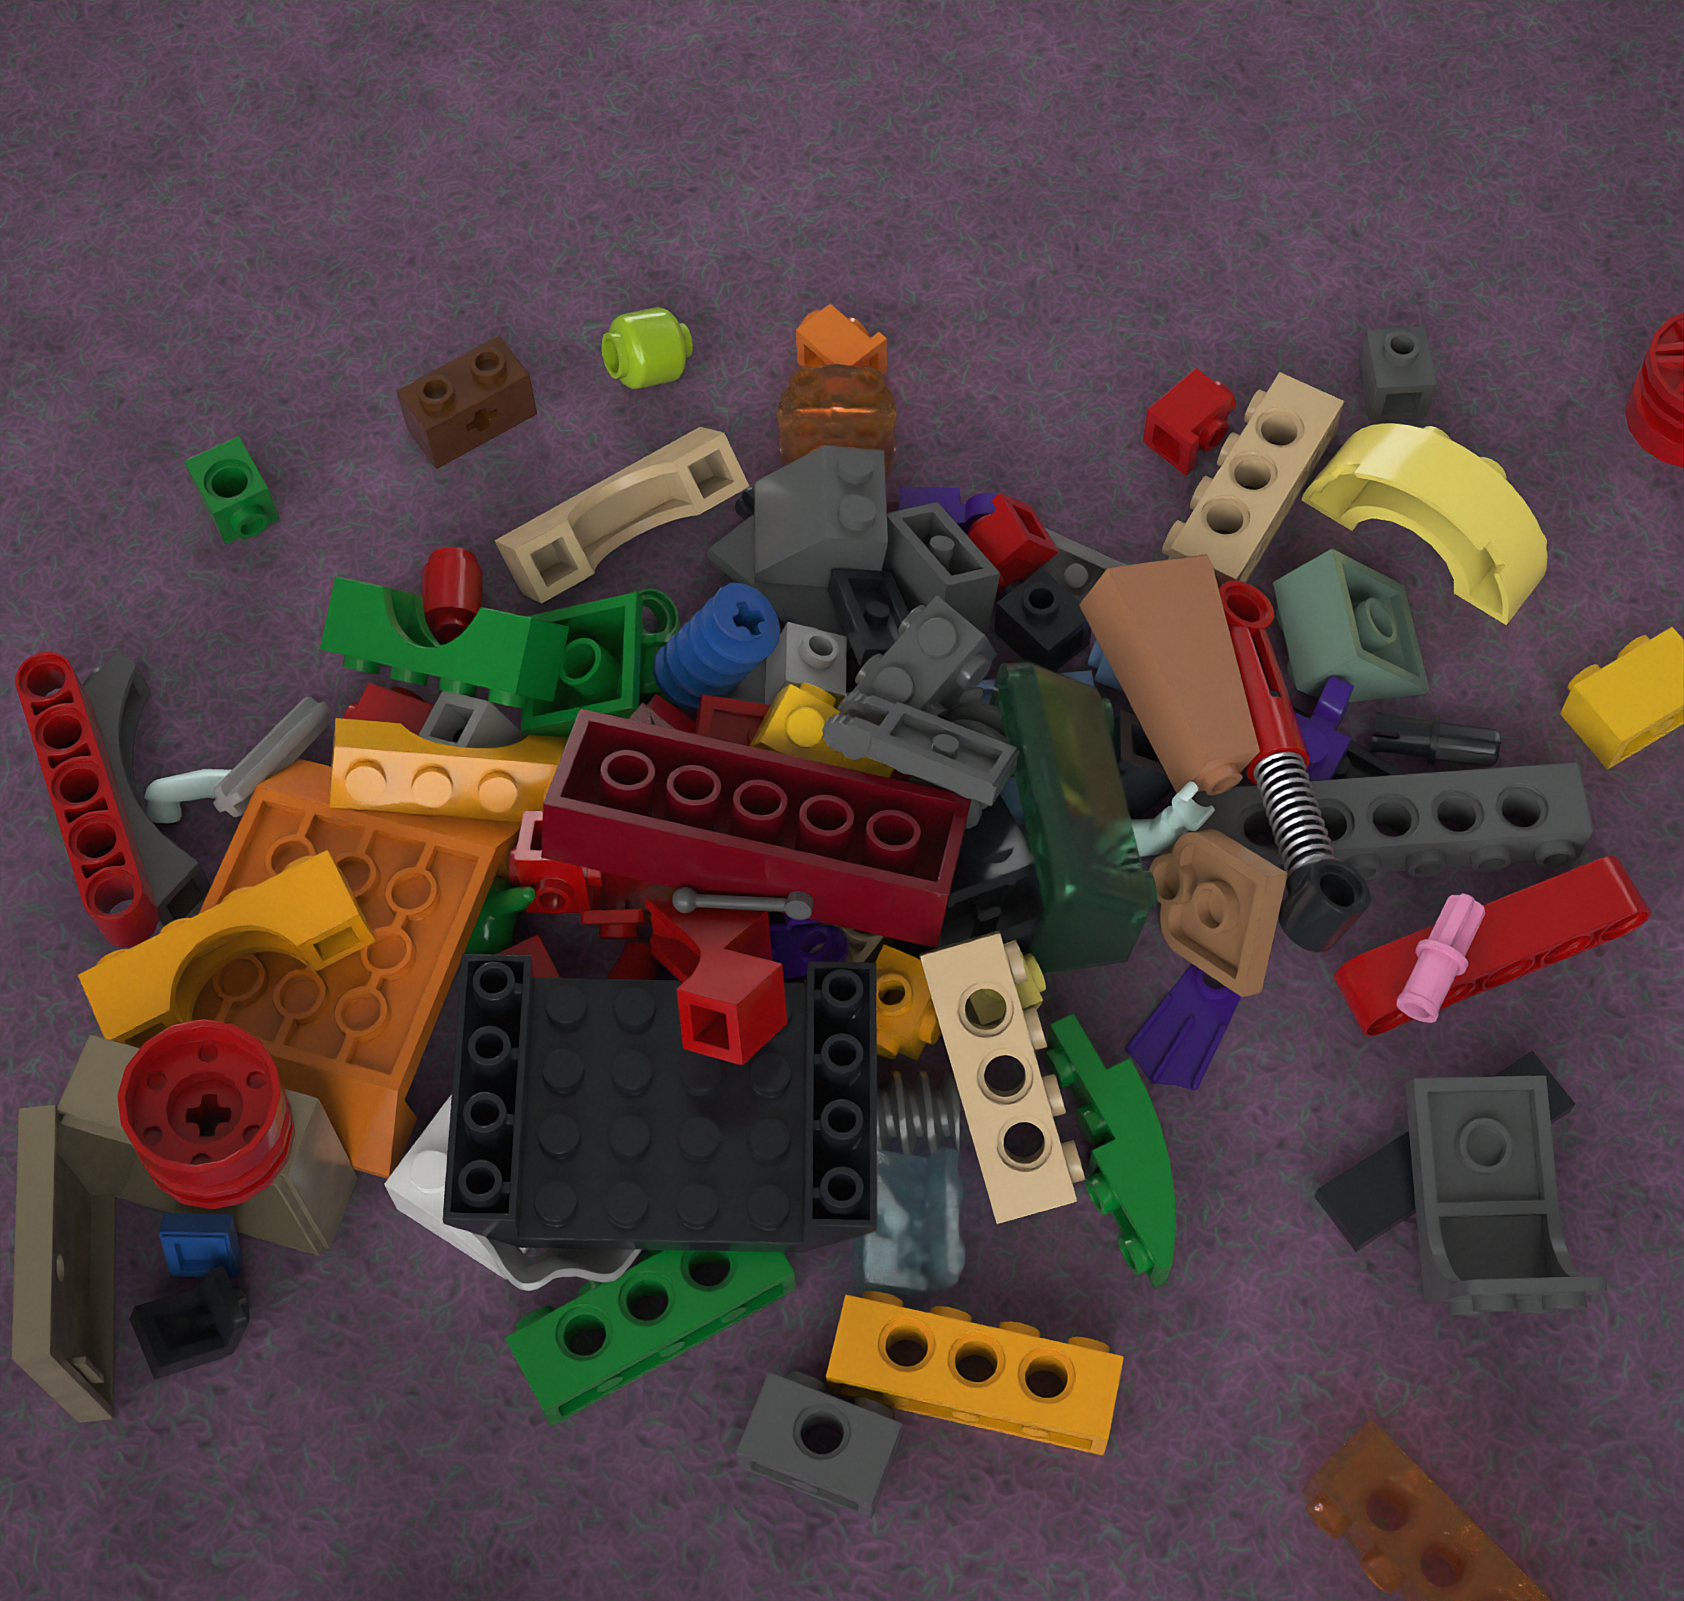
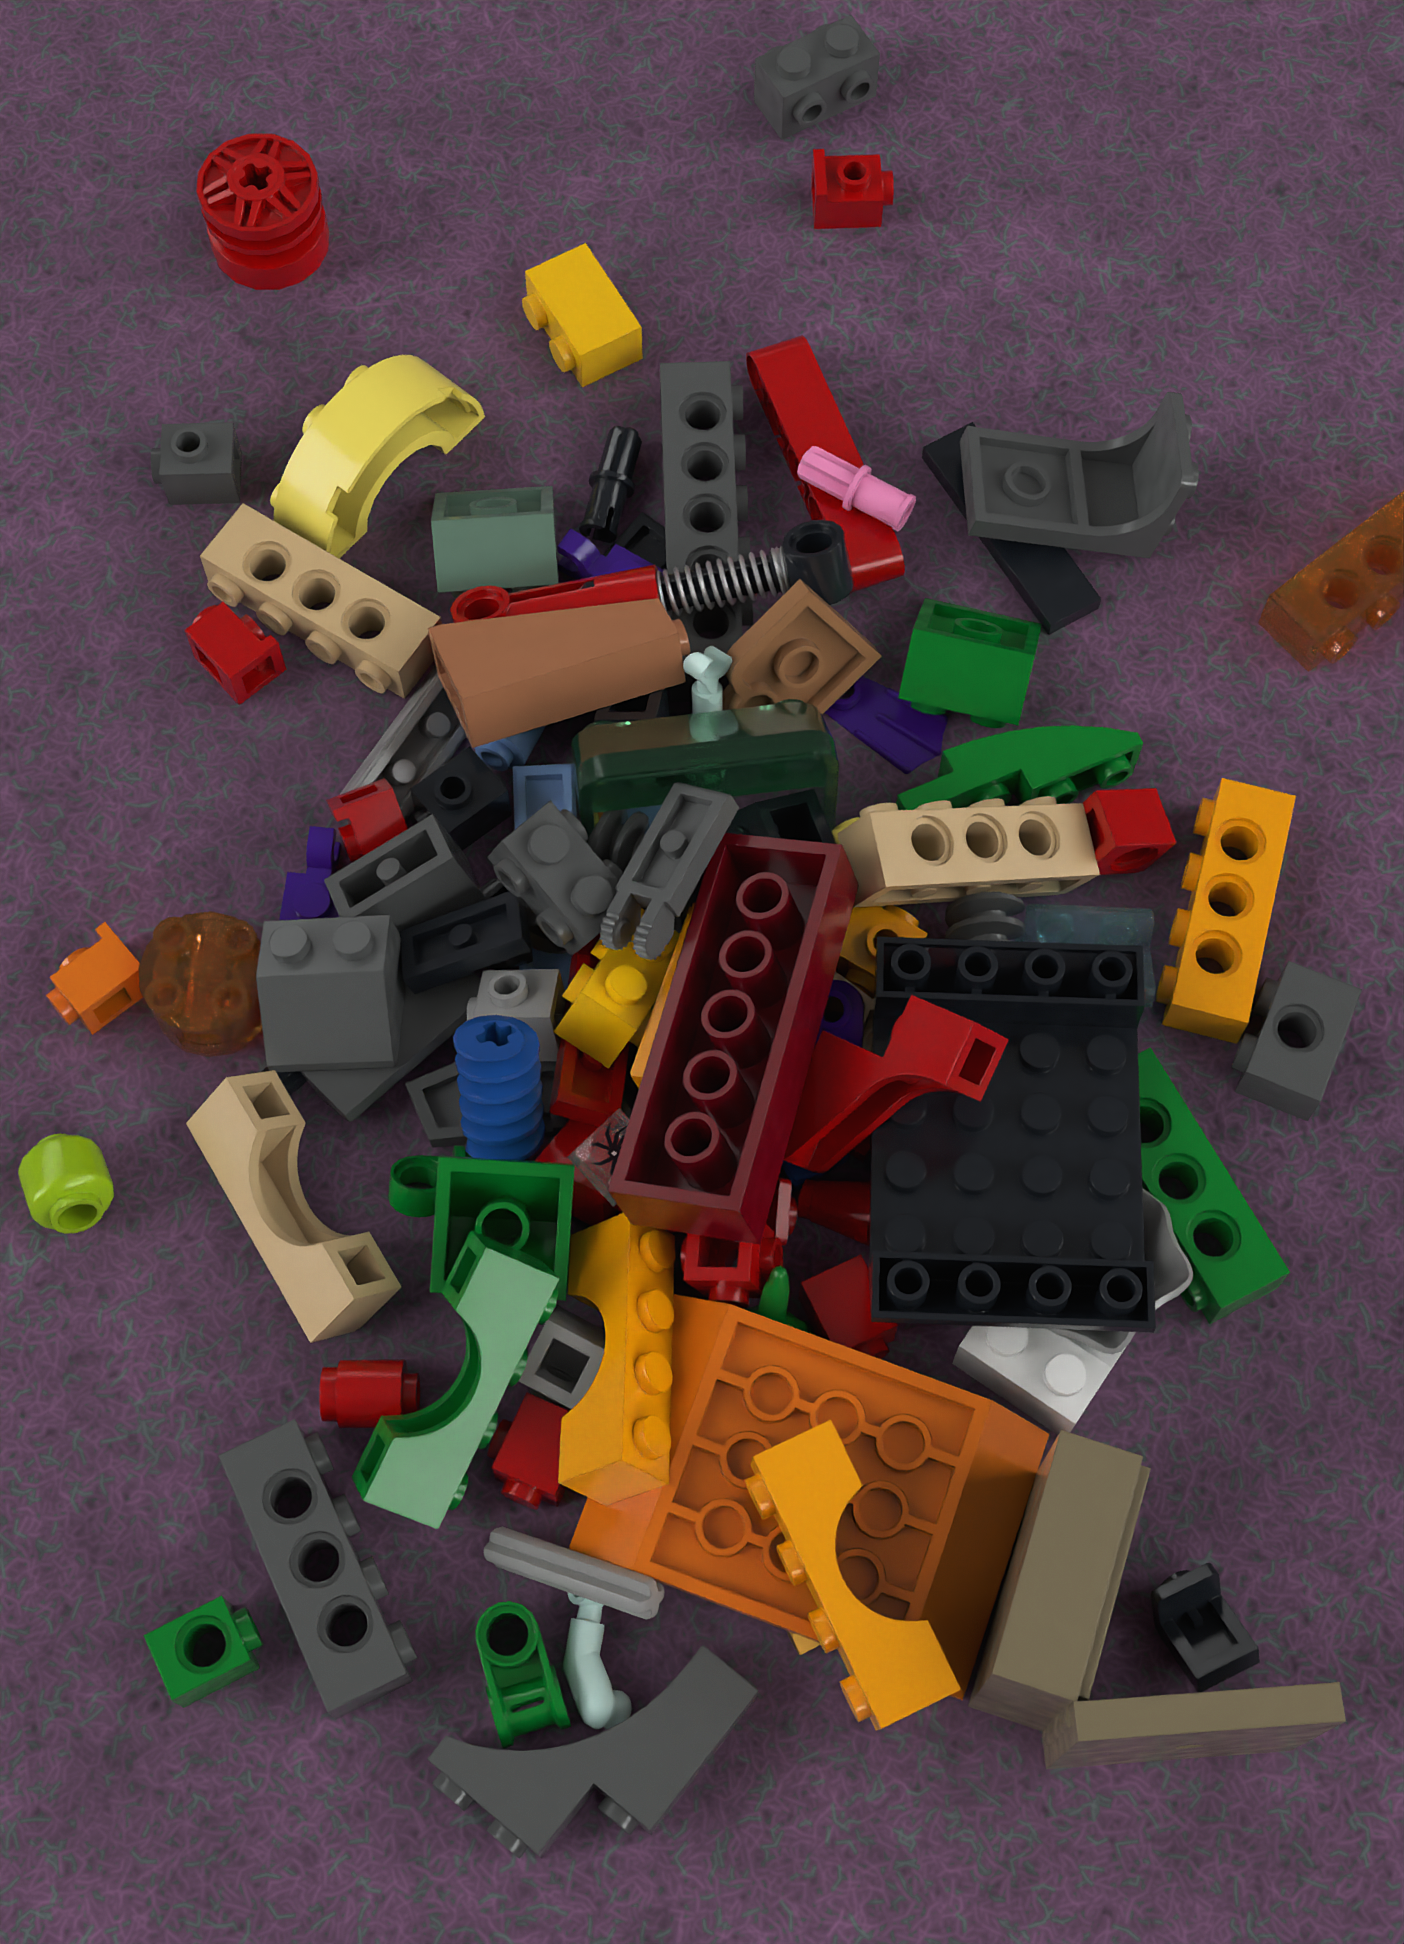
camera: 90 degrees left, 5 degrees up
(91, 823) = (596, 1758): red beam -> none
(177, 1089) = (1147, 1480): red wheel -> none
(194, 729) = (519, 1678): none -> green piece
(200, 1243) = (1125, 1631): blue tile -> none
(268, 559) = (260, 1477): none -> dark grey brick
(467, 401) = (116, 1378): reddish brown brick -> none
(796, 905) = (811, 1103): dark grey hinge -> none
(1057, 1256) = (1127, 829): none -> red brick
(1260, 1099) = (969, 663): none -> green slope

